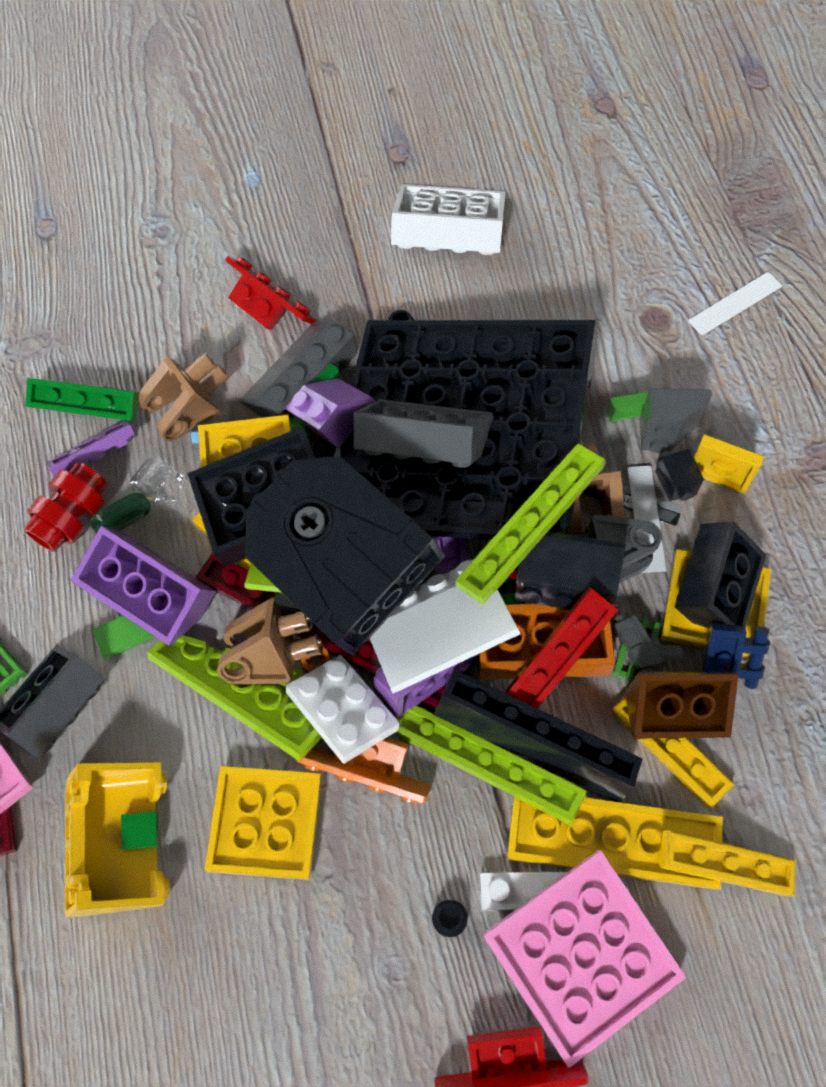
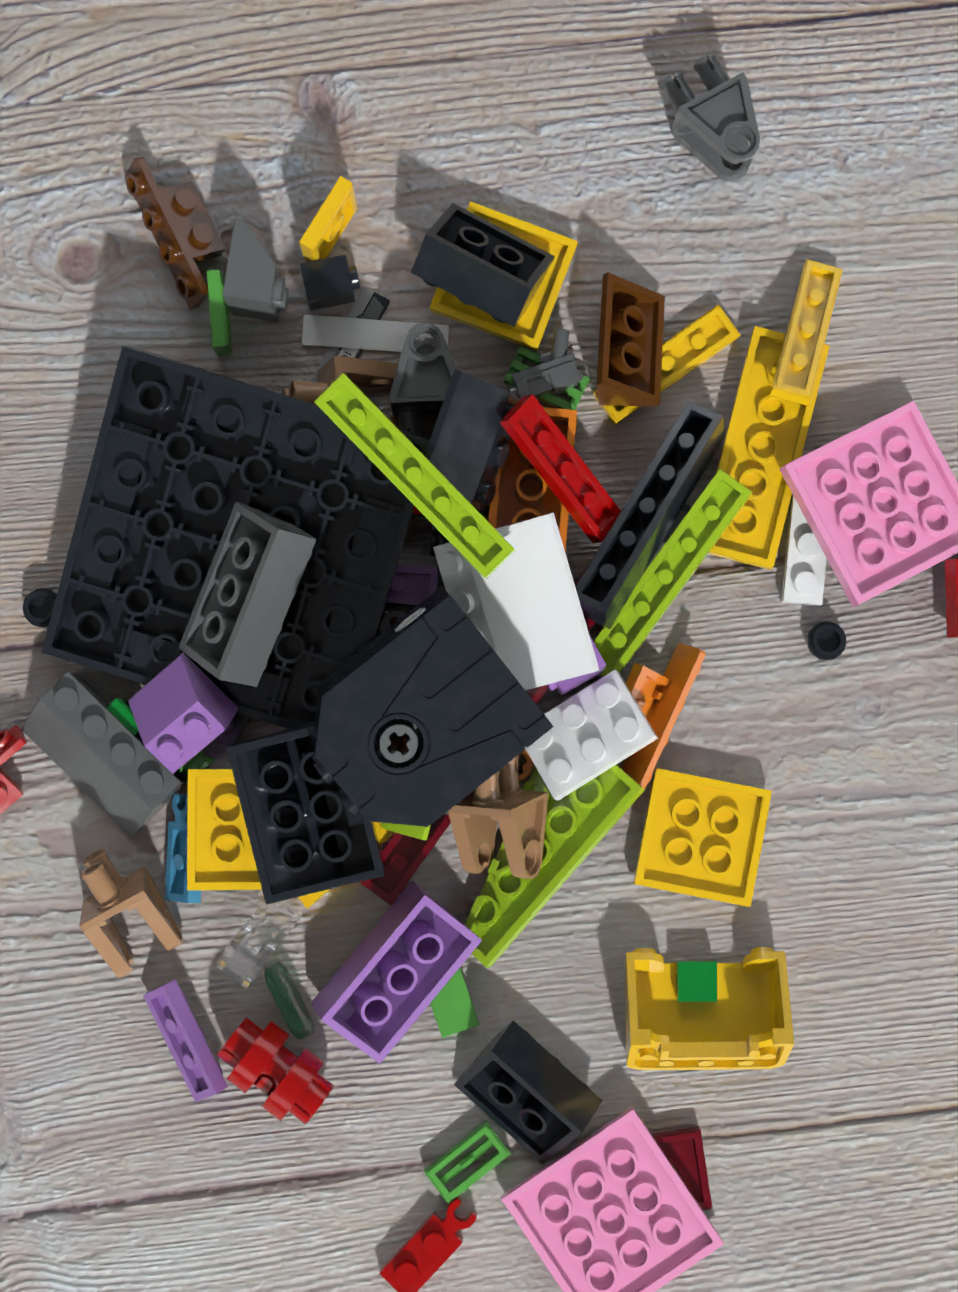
camera: 90 degrees left, 20 degrees up
(82, 399) = (109, 1053): green plate -> none
(702, 371) = (179, 227): none -> reddish brown bracket
(725, 651) = (570, 278): dark blue plate -> none
(734, 303) = (71, 151): white sticker -> none

